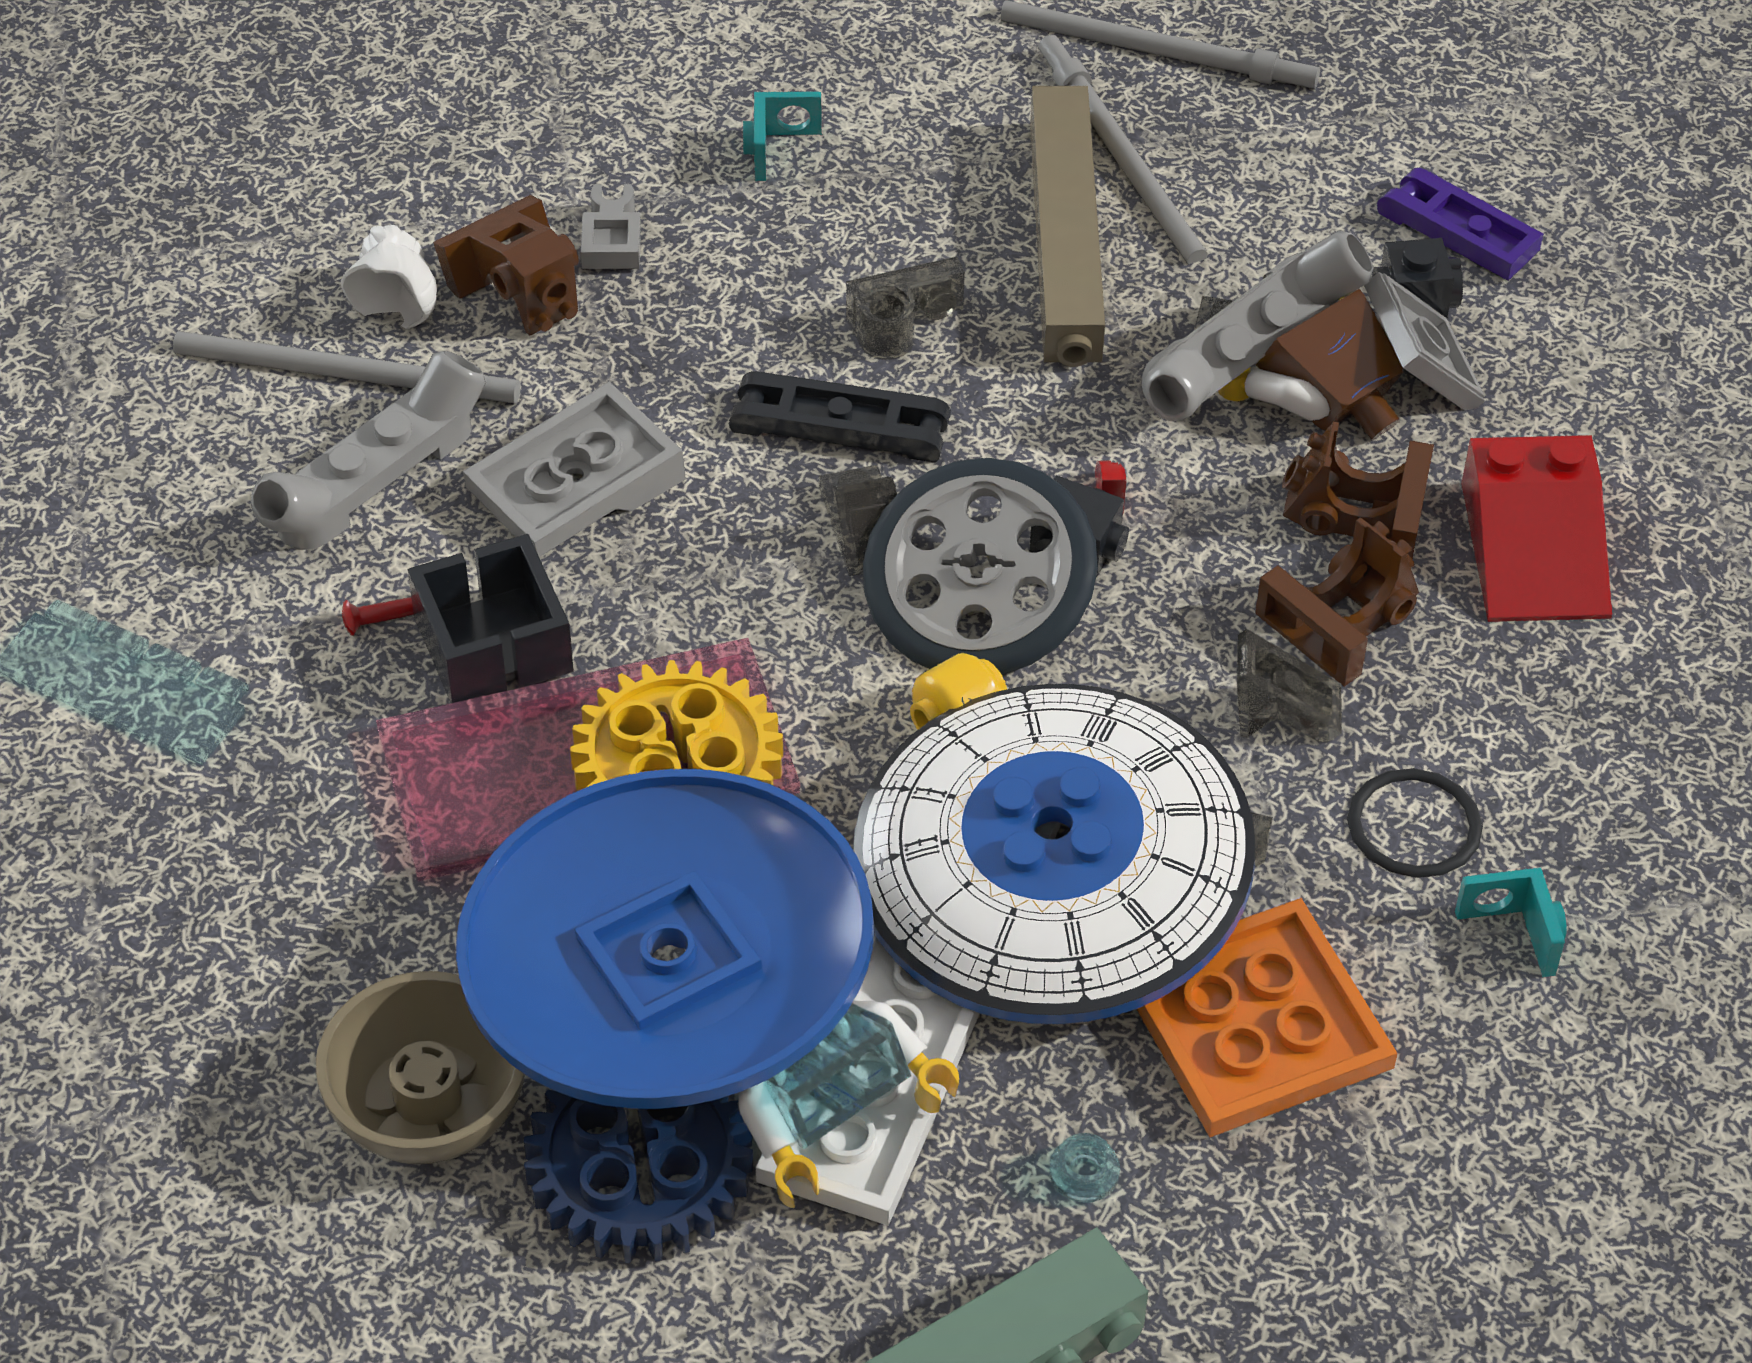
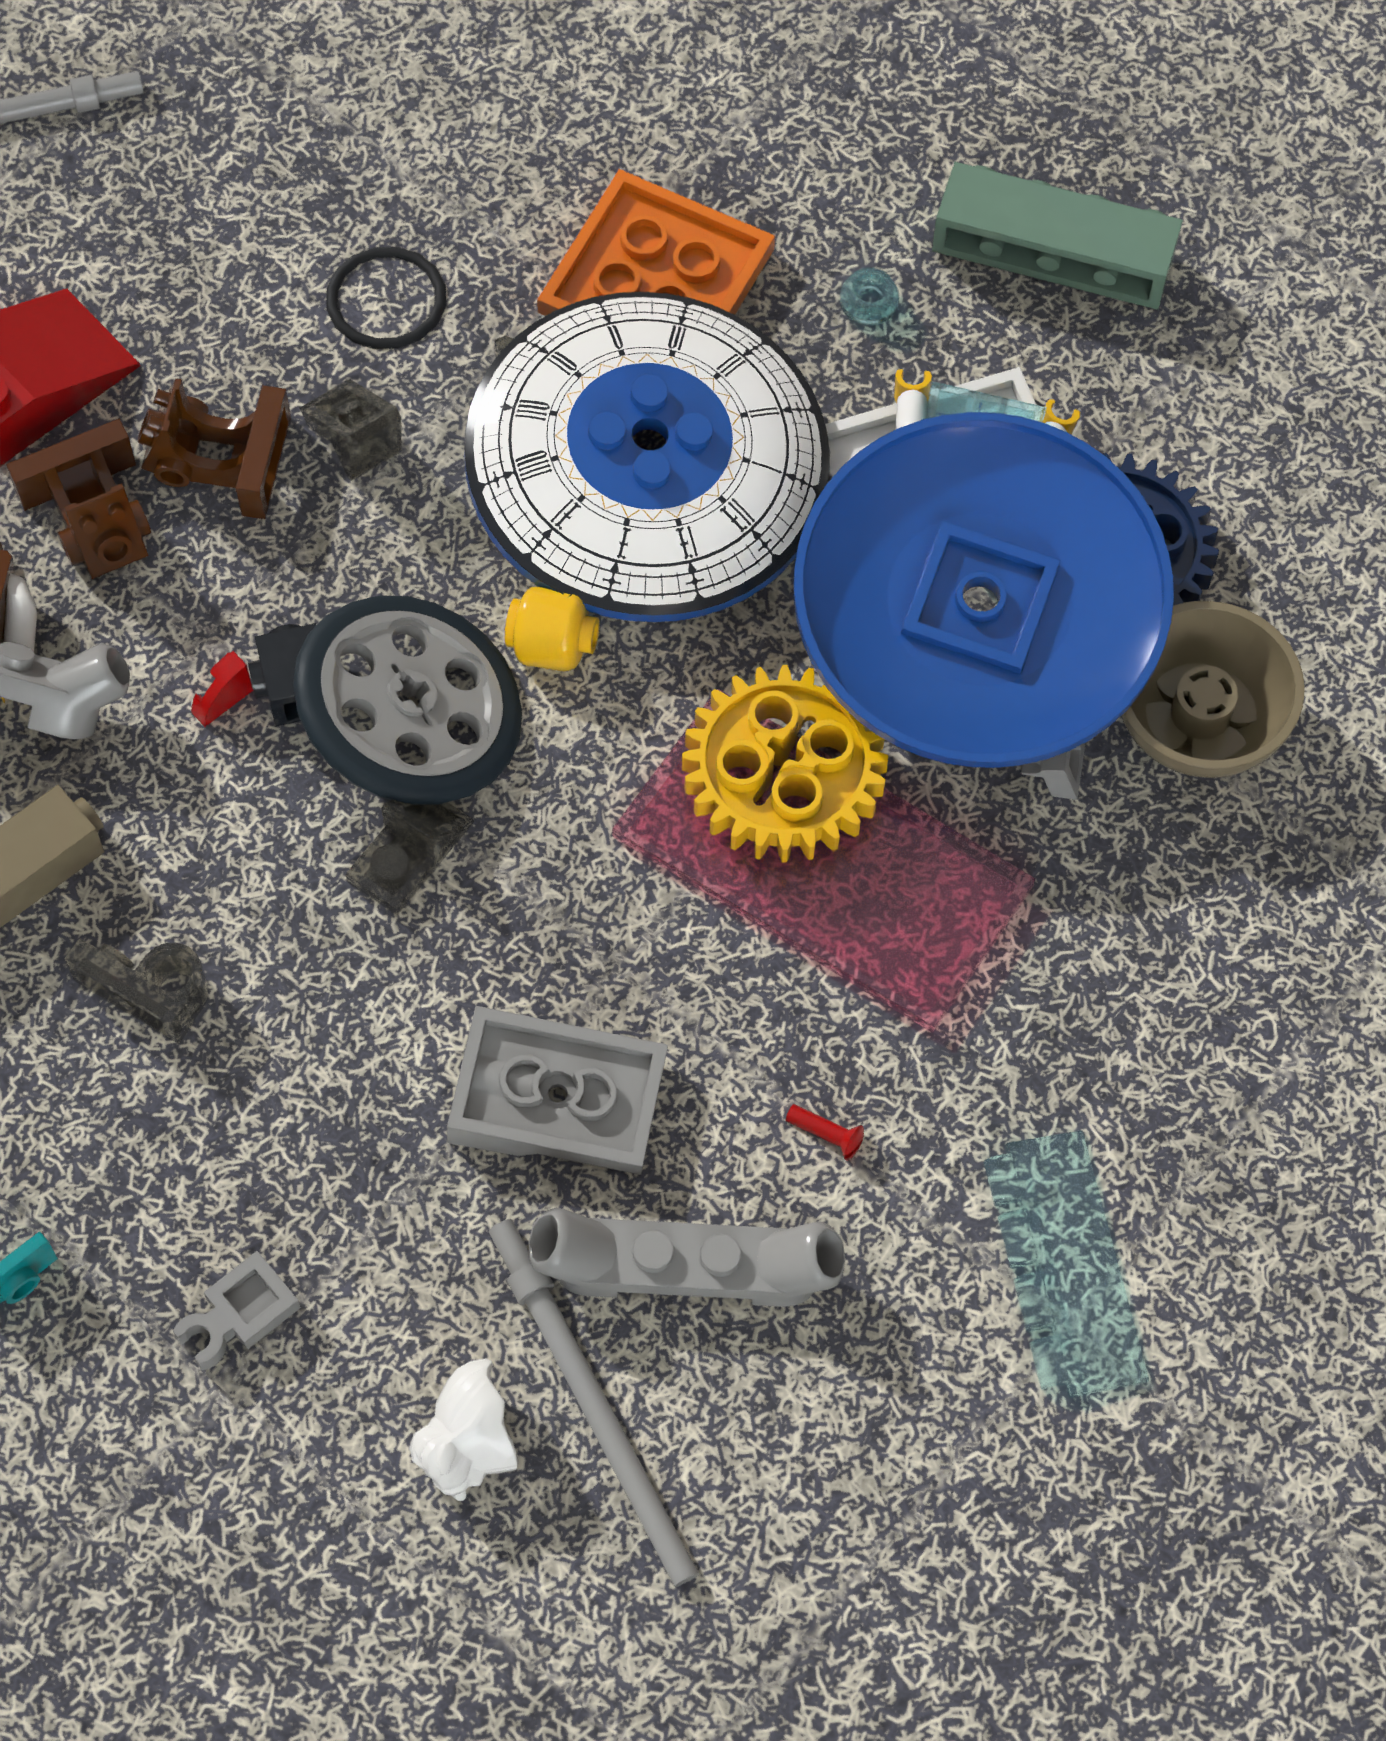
camera: 130 degrees left, 15 degrees up
(502, 637) = (773, 1006): black piece -> none
(531, 269) = (372, 1280): reddish brown tile -> none
(840, 414) = (312, 947): black plate -> none
(1528, 895) = (419, 160): teal bracket -> none

